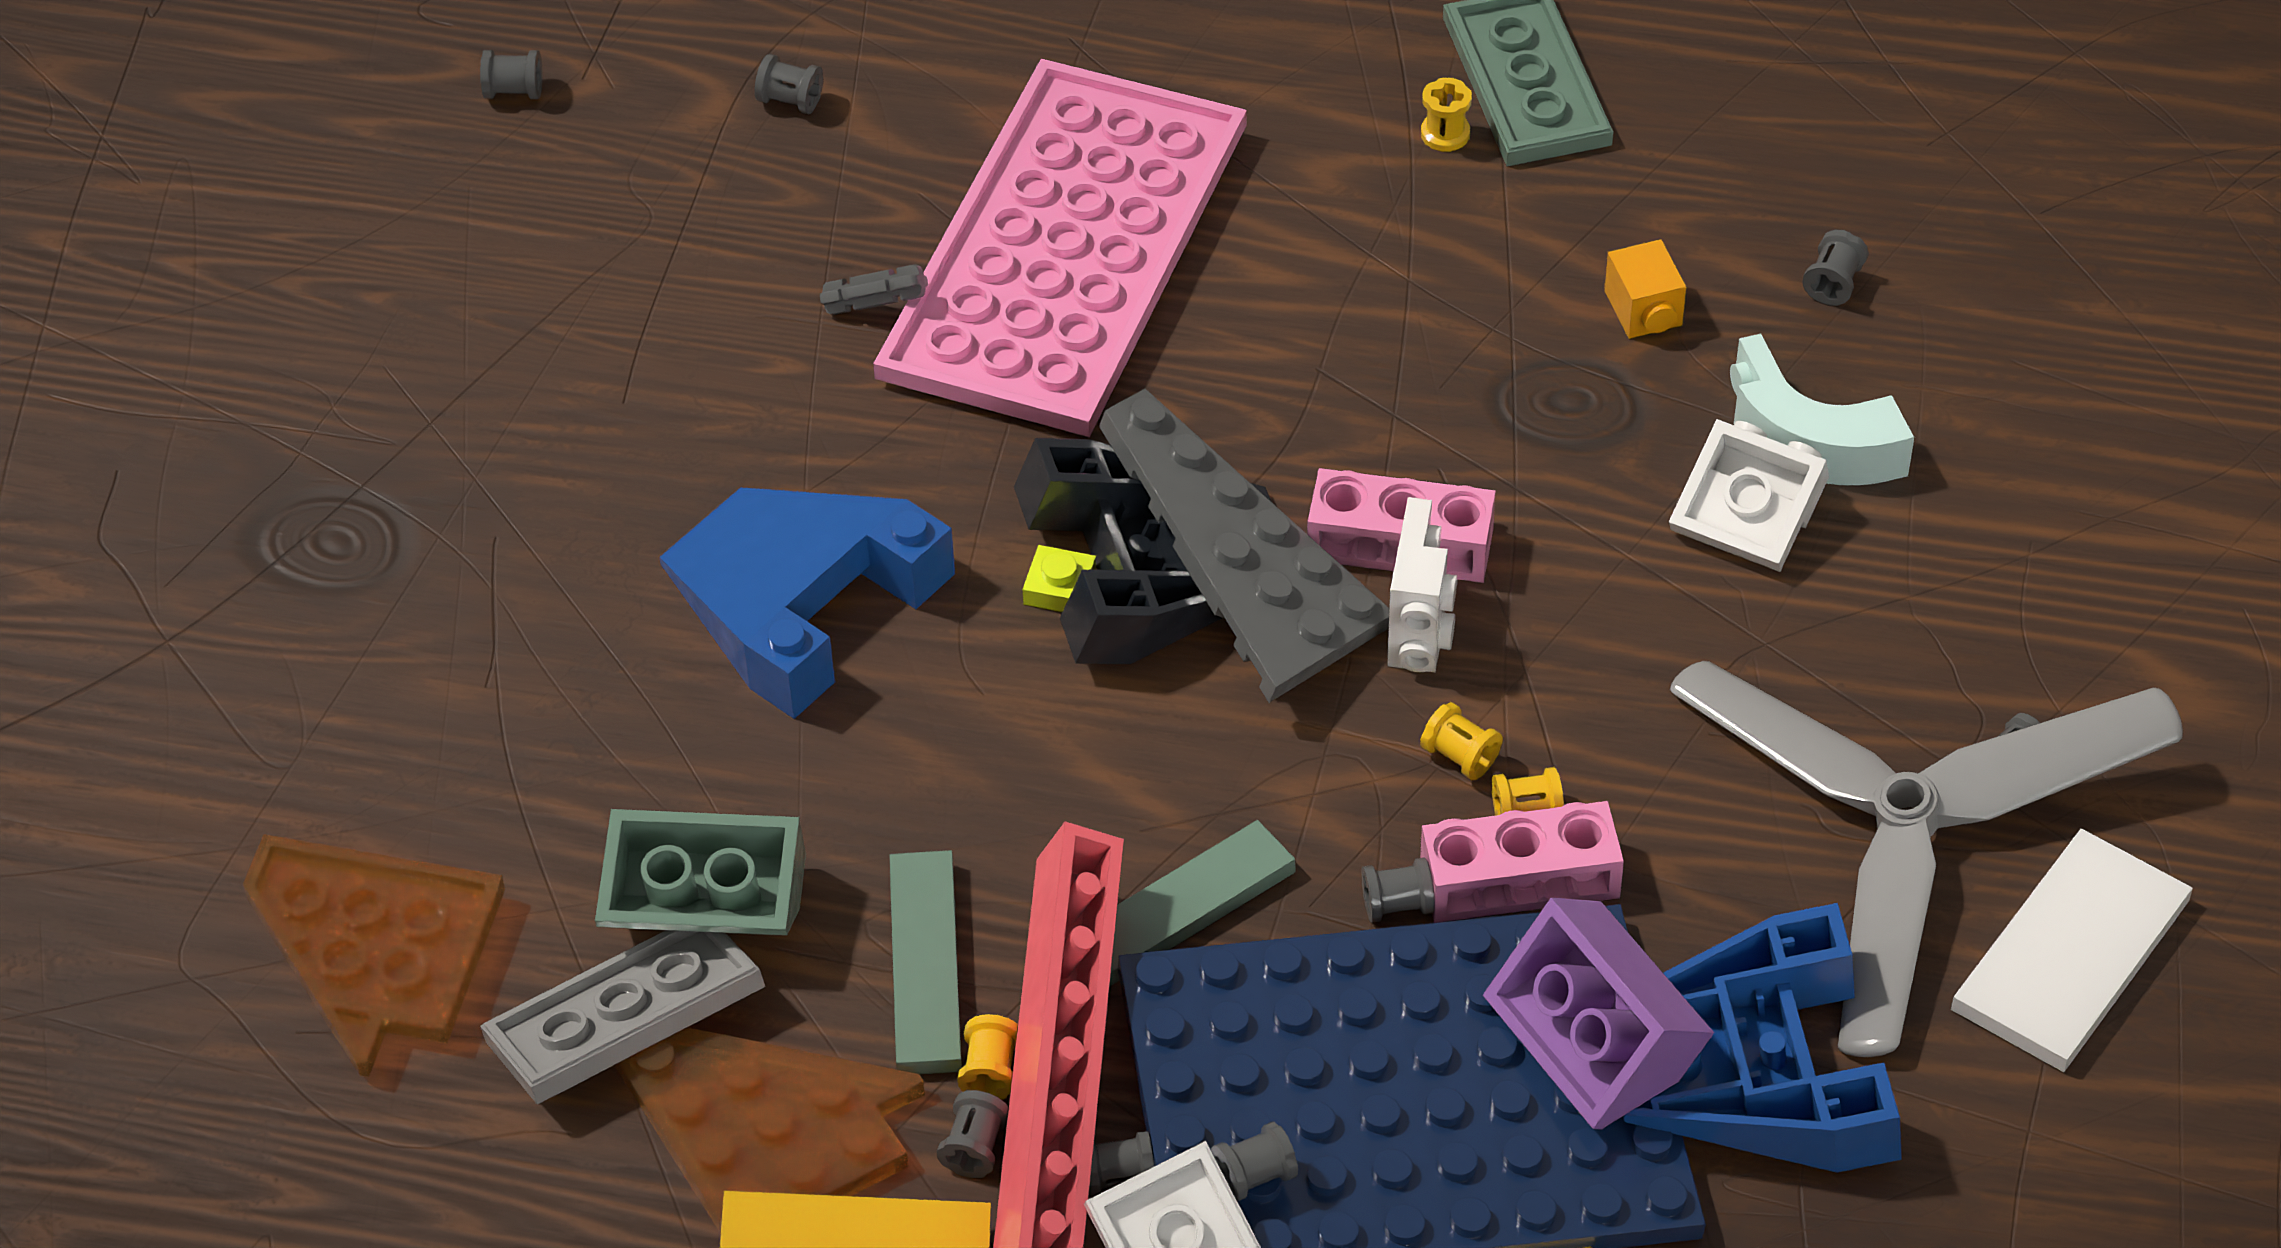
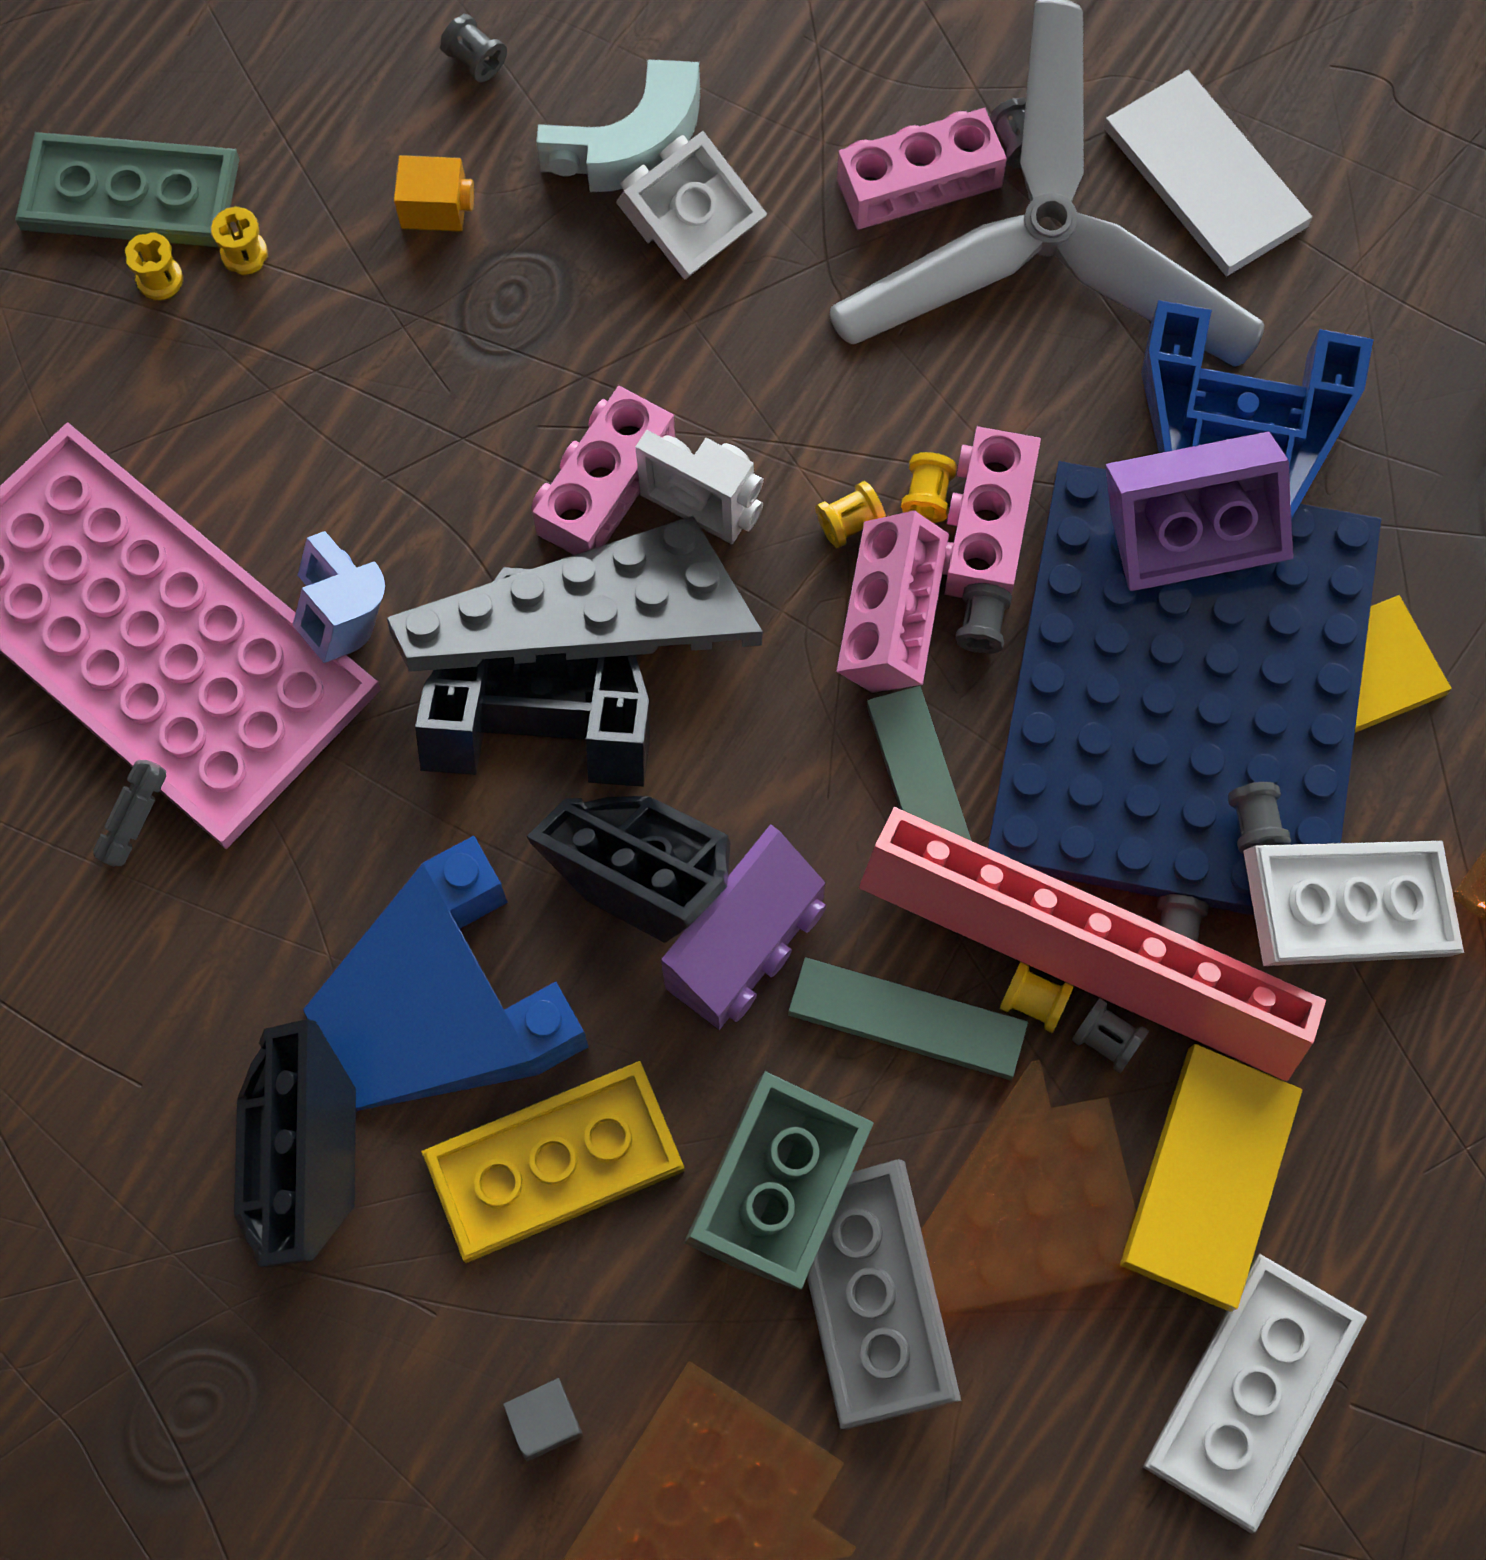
camera: 70 degrees left, 20 degrees up
(408, 793) = (542, 1420): none -> dark grey slope
(602, 516) = (294, 1145): none -> black wedge
(666, 722) = (552, 1161): none -> yellow tile
(951, 773) = (745, 930): none -> medium lavender slope
(984, 666) = (636, 859): none -> black wedge
(1054, 577) = (534, 769): neon yellow plate -> none
(1151, 360) = (339, 600): none -> medium blue brick
(1370, 796) = (893, 602): none -> bright pink brick
(1509, 159) = (234, 243): none -> yellow bush
(1911, 675) = (911, 188): none -> bright pink brick

